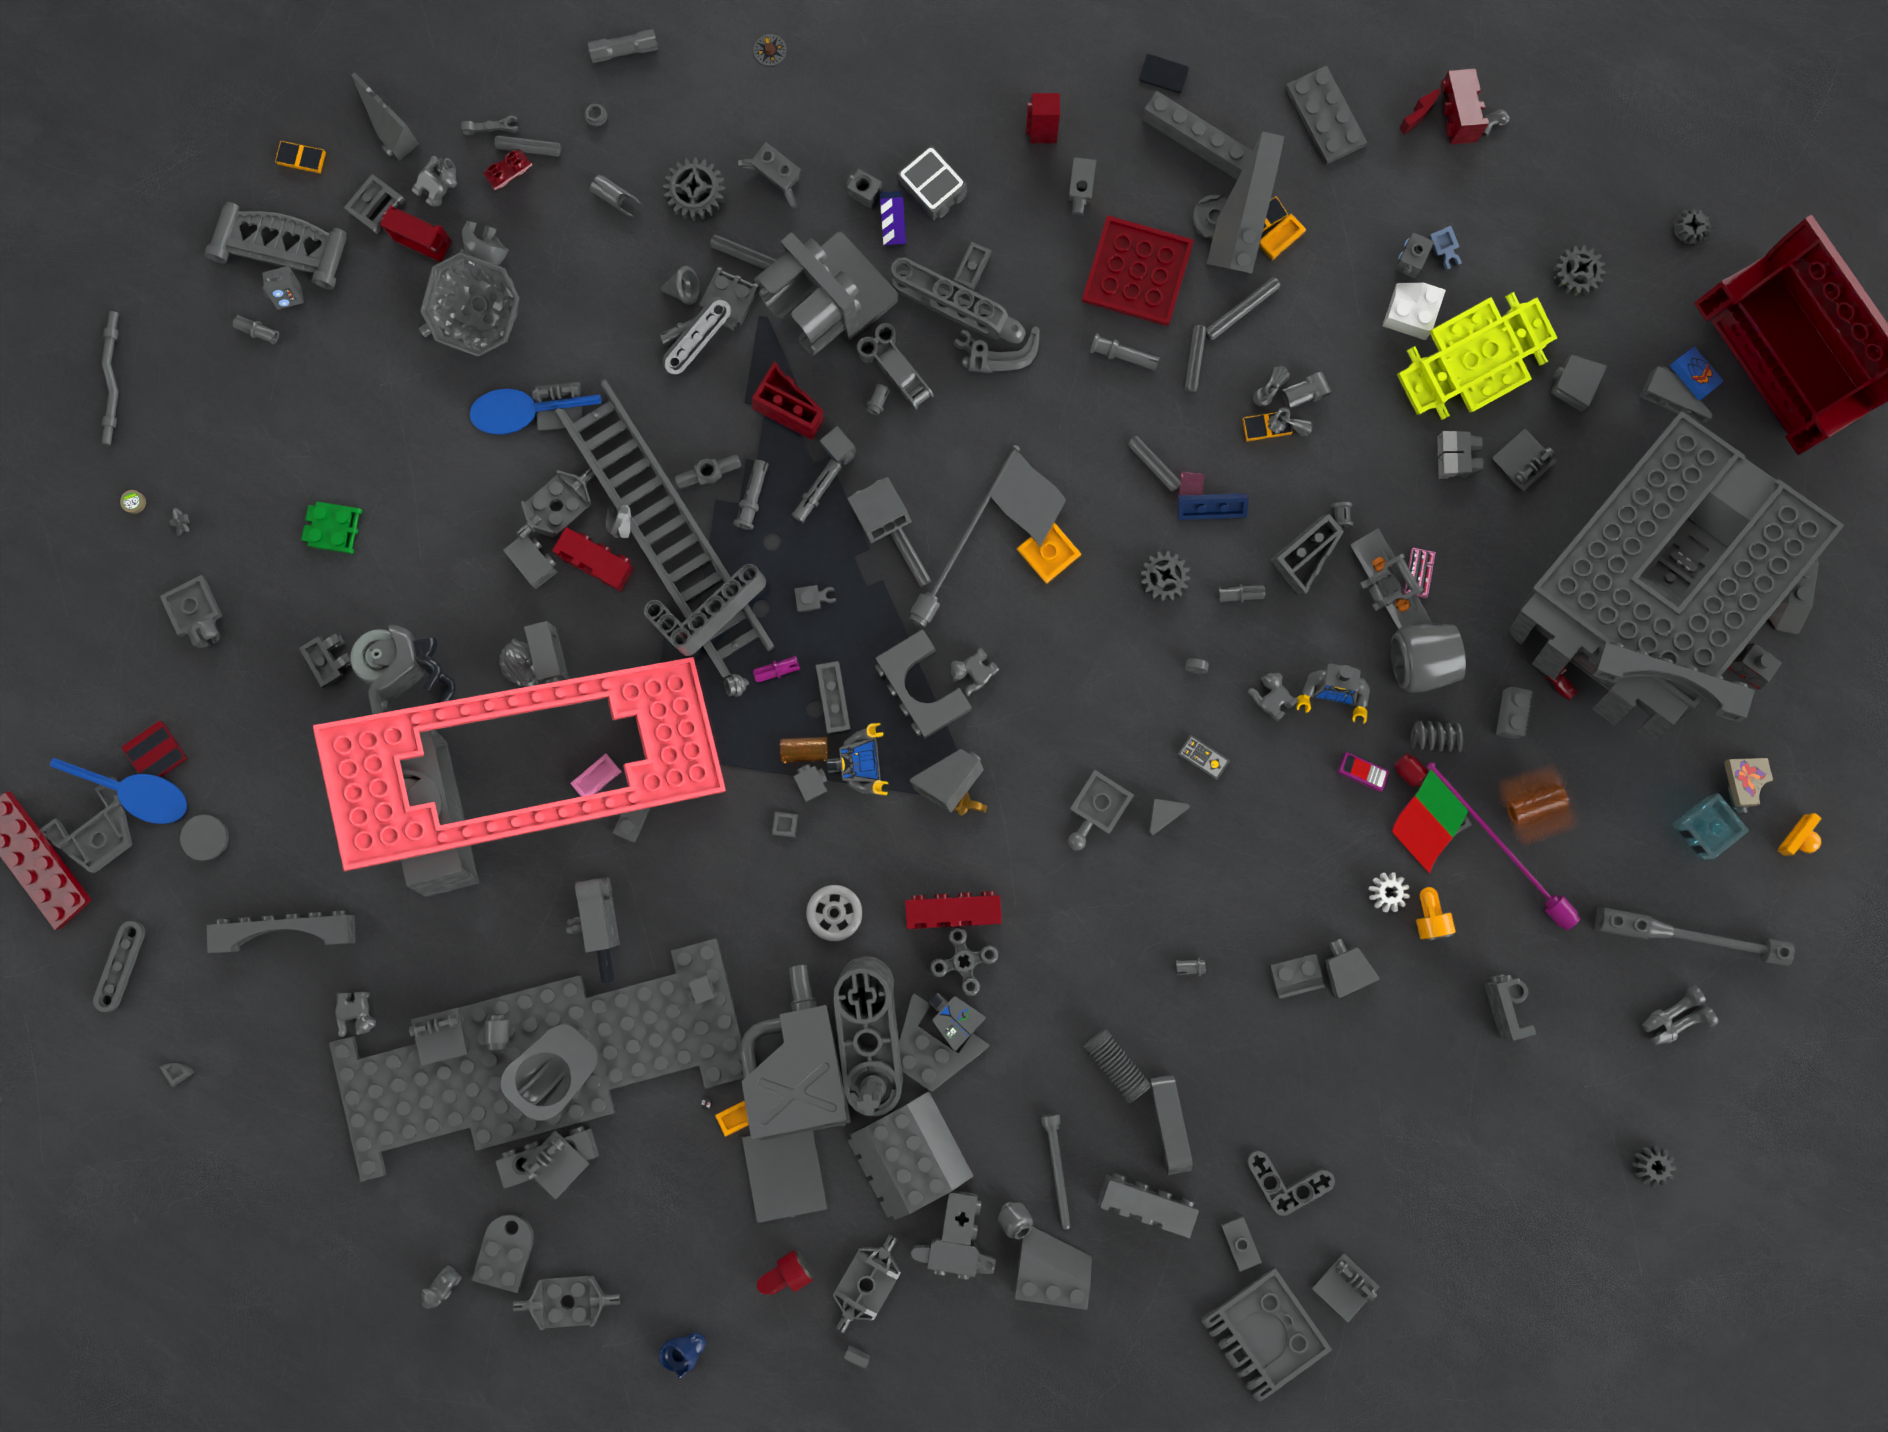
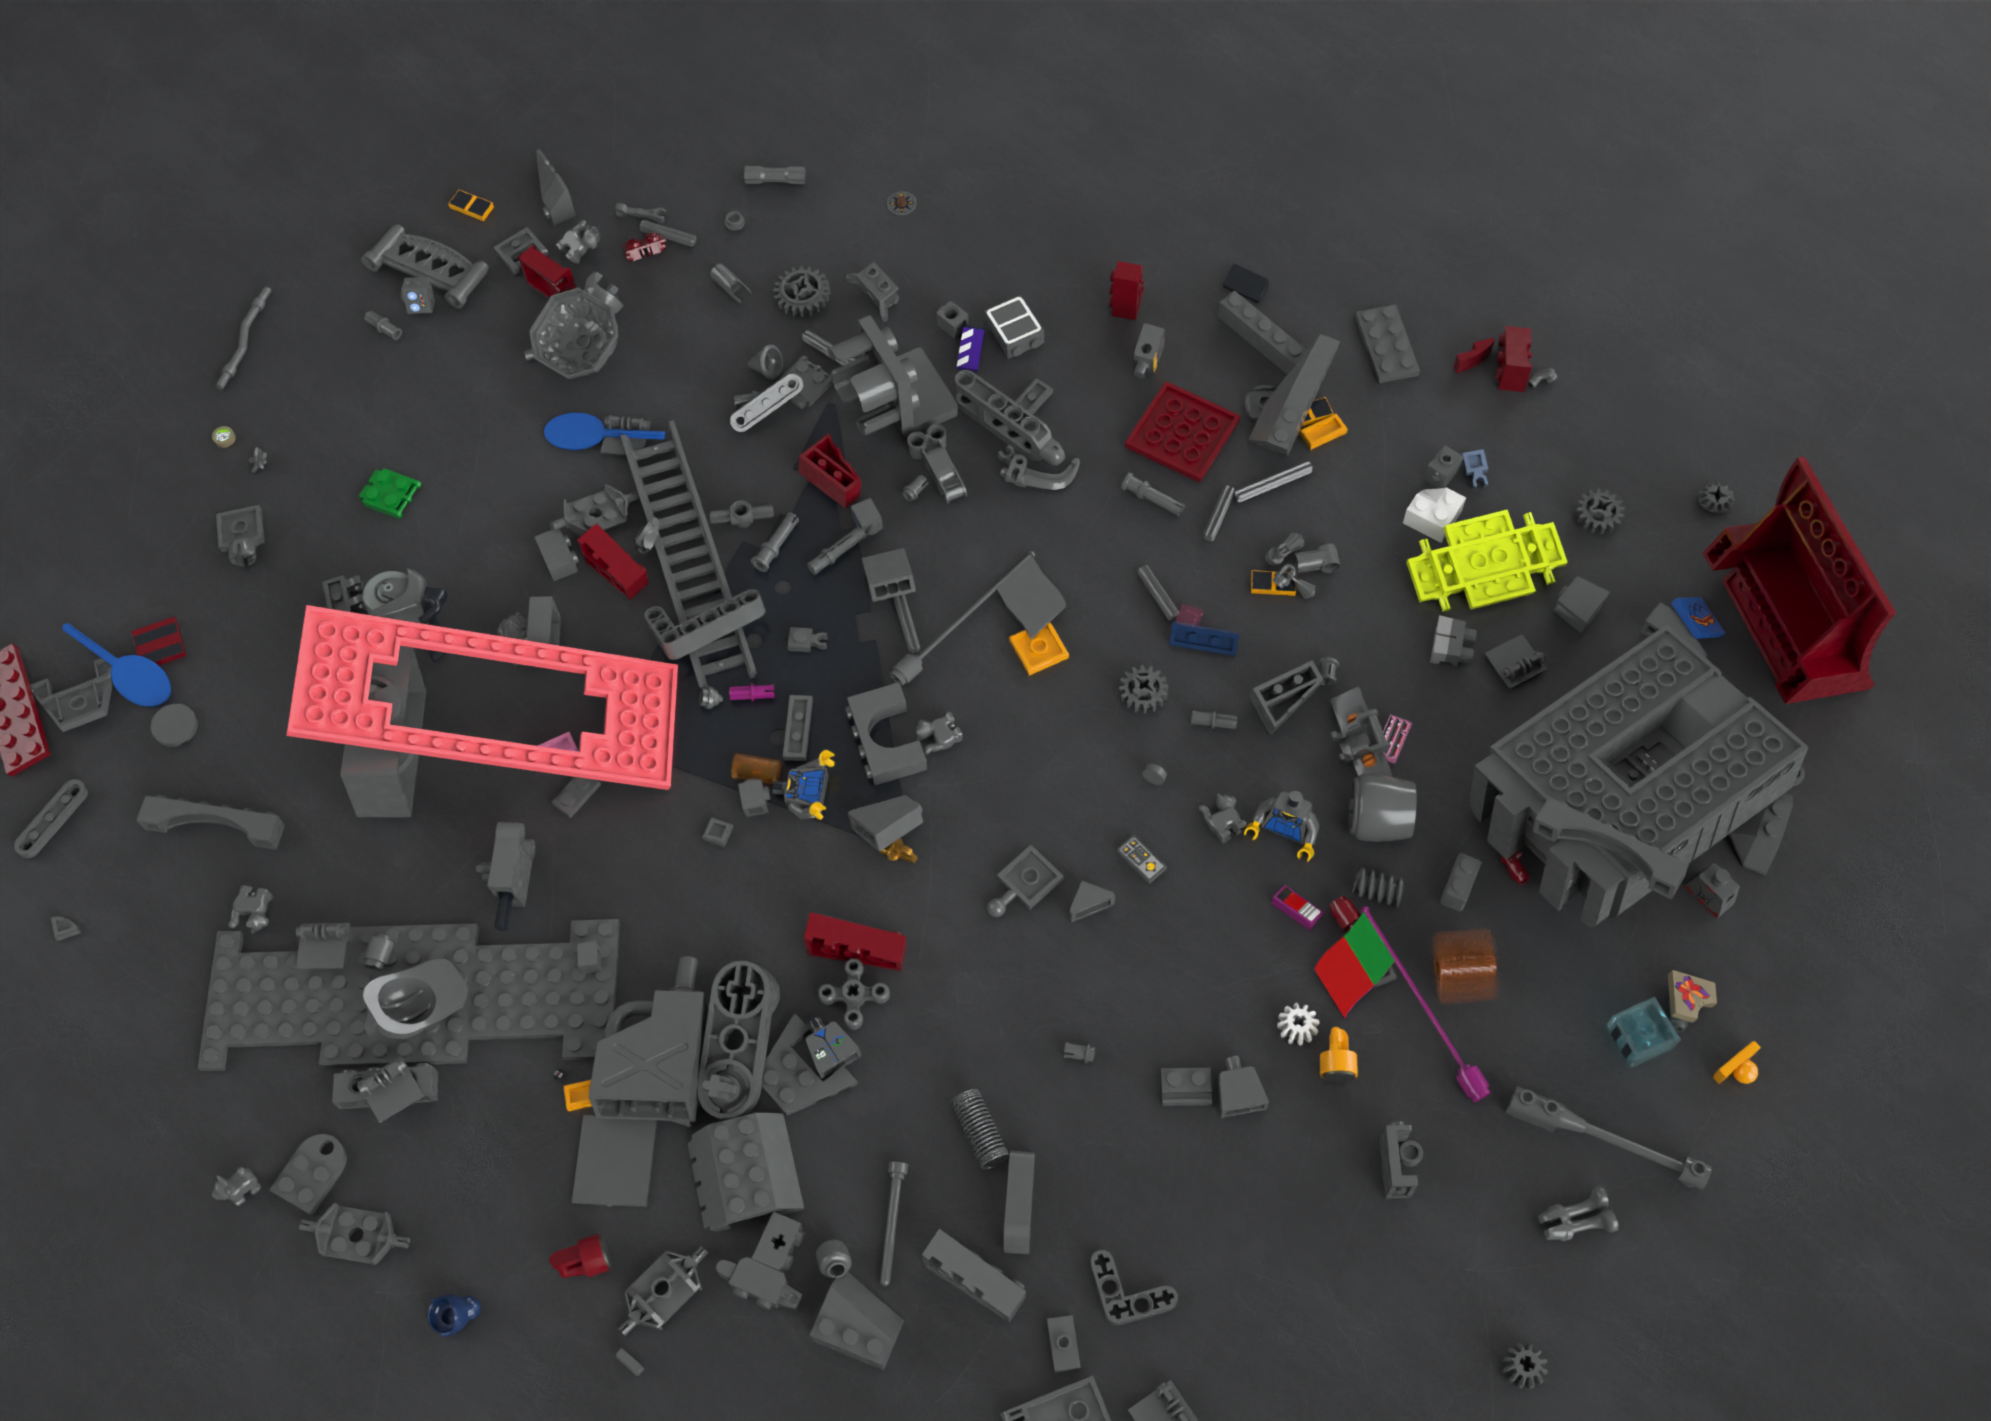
camera: 10 degrees right, 20 degrees down
(823, 896) = (733, 903): light grey plate -> none

